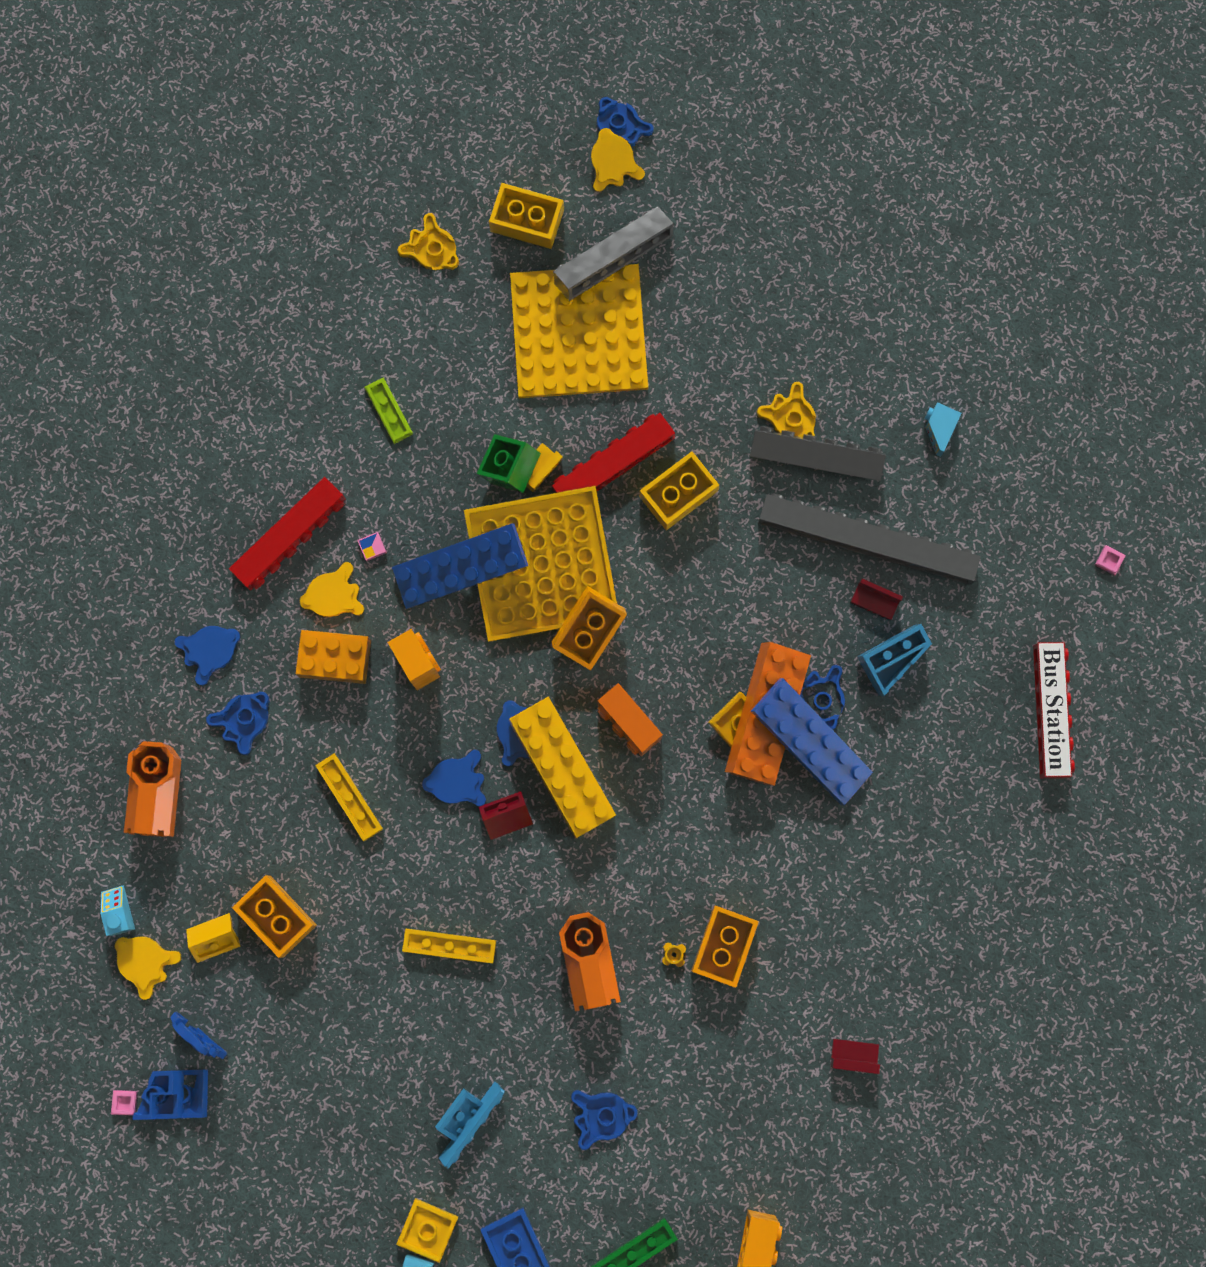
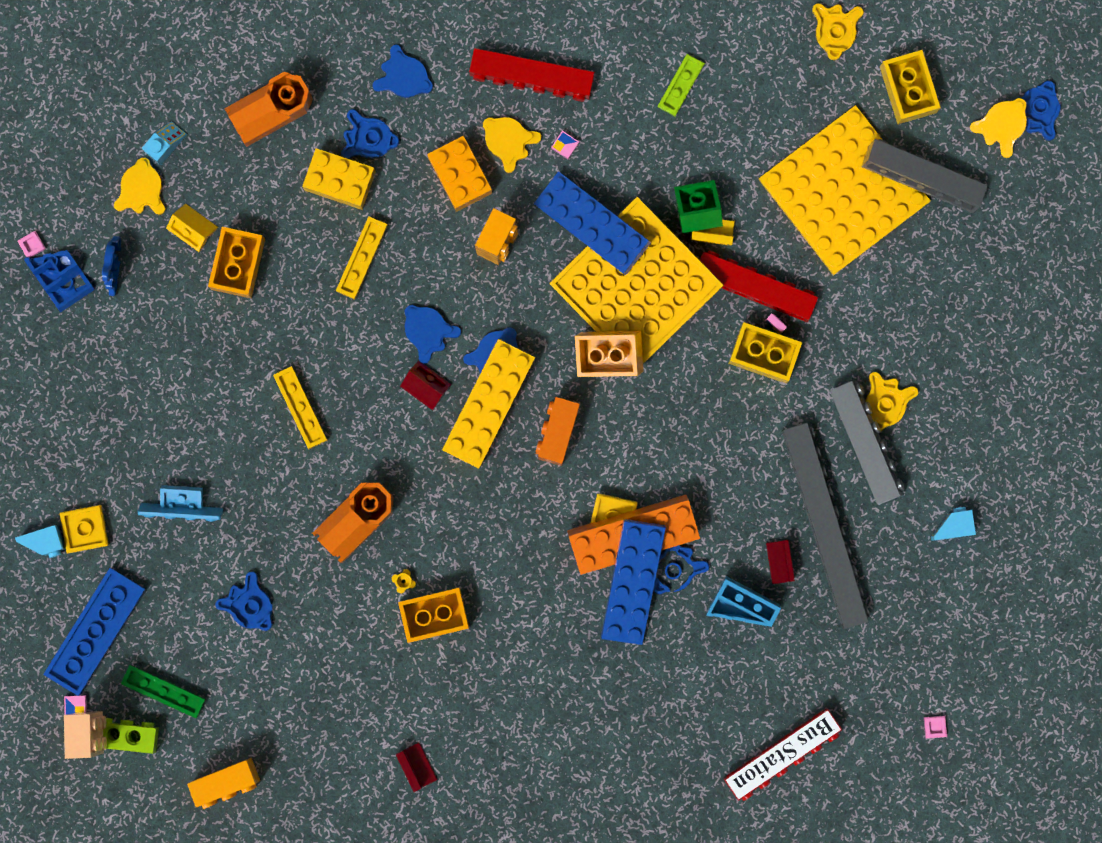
camera: 55 degrees right, 5 degrees up
(262, 770) = (339, 179): none -> yellow brick
(658, 465) = (776, 324): none -> bright pink tile

